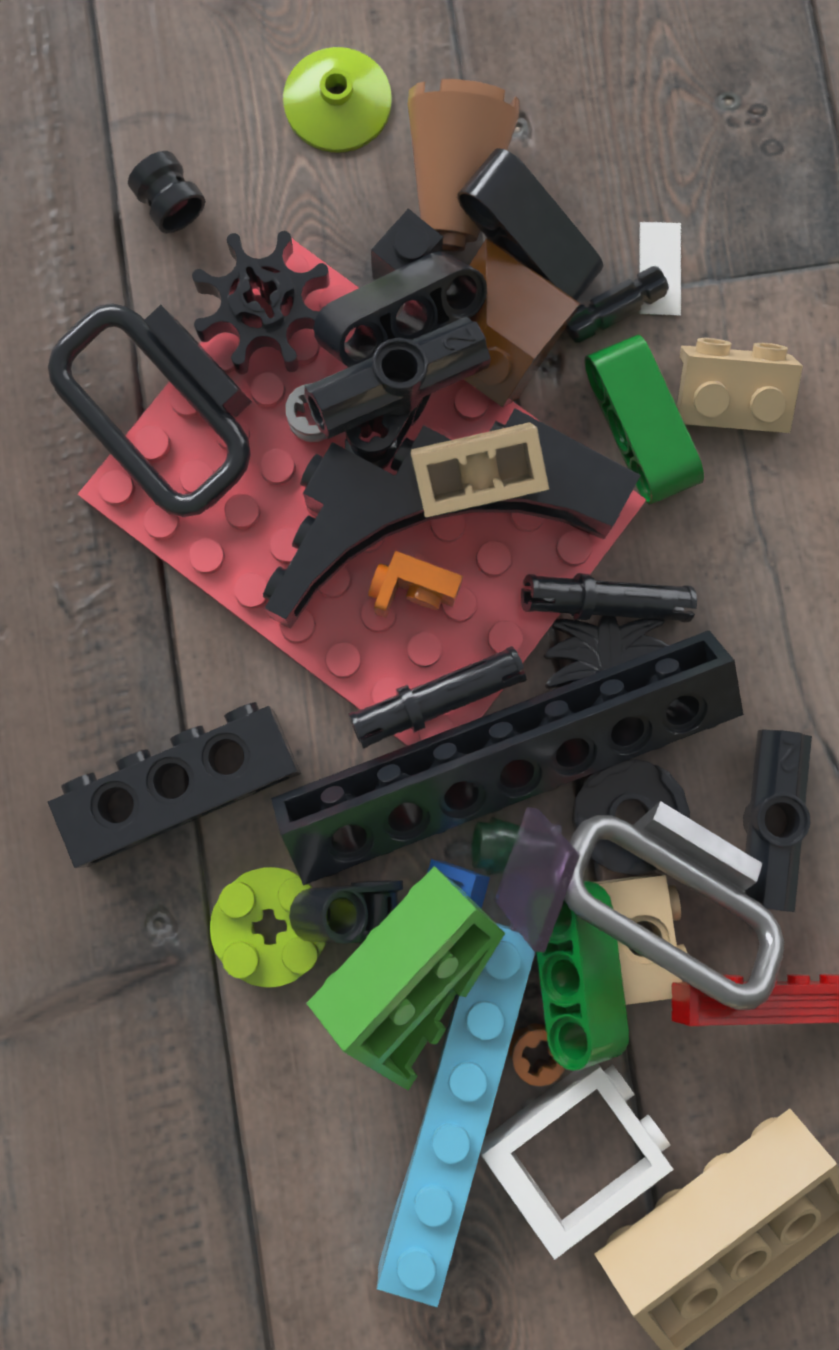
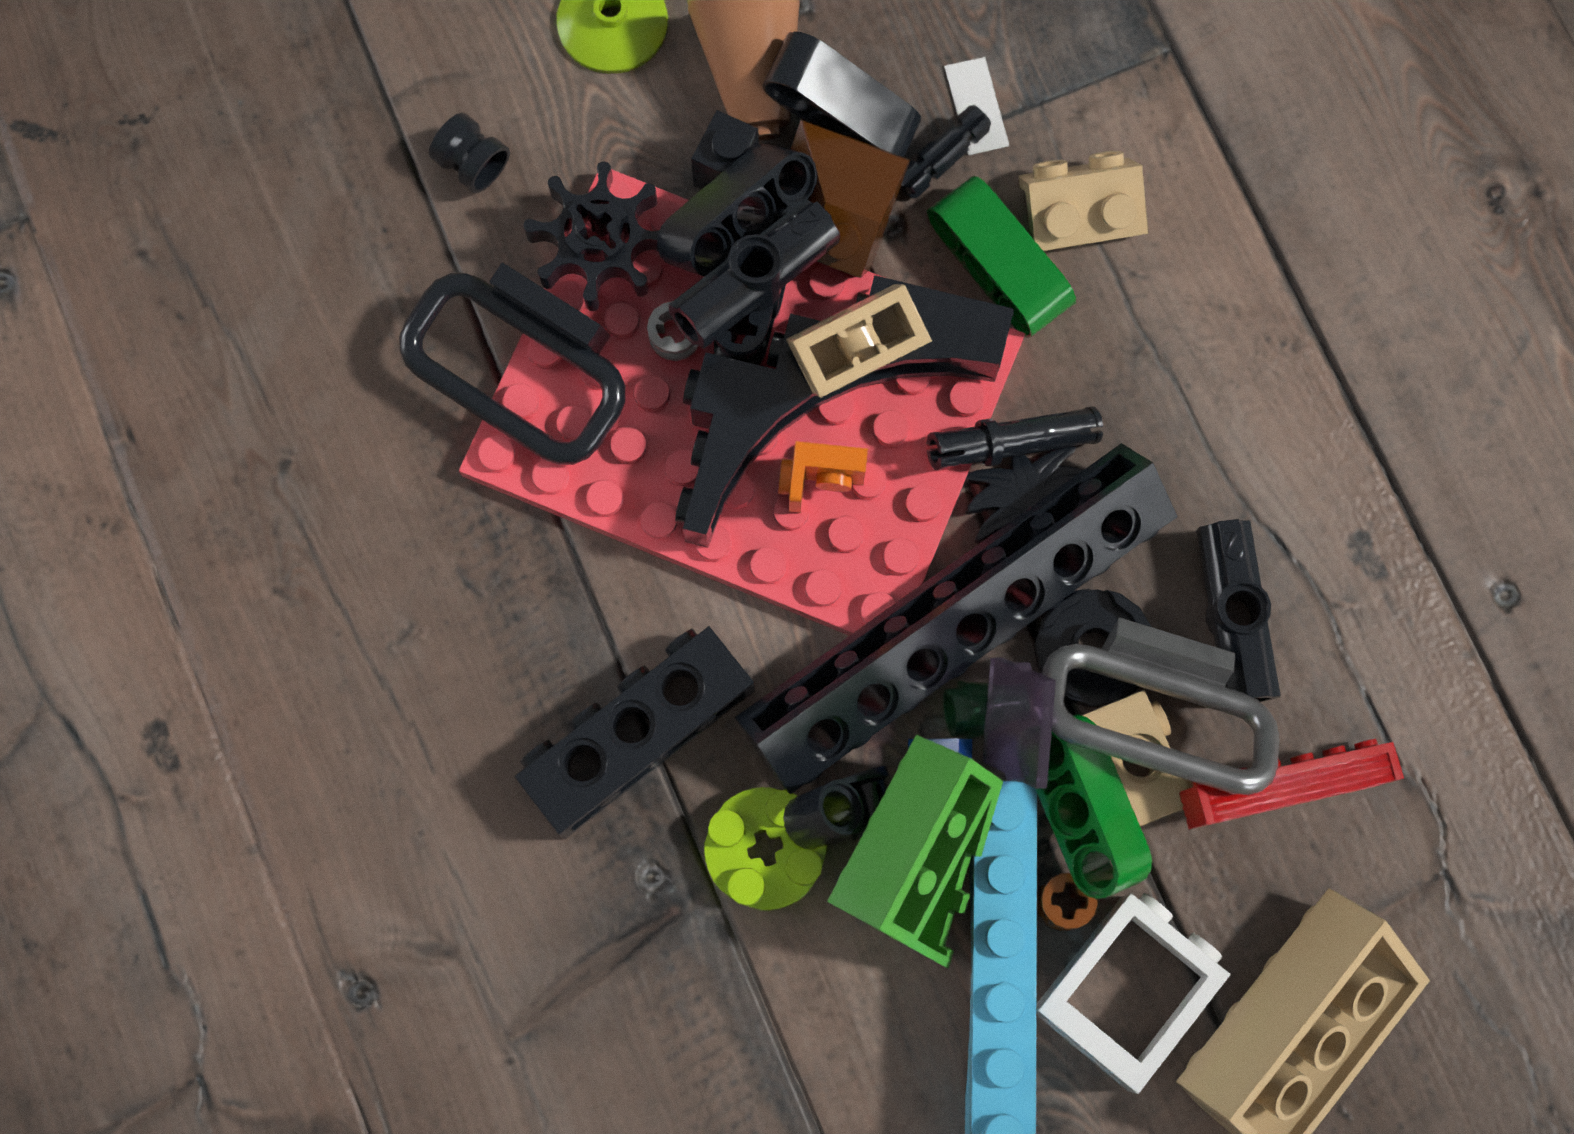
camera: 10 degrees left, 5 degrees down
(427, 701) = (885, 566): black pin -> none

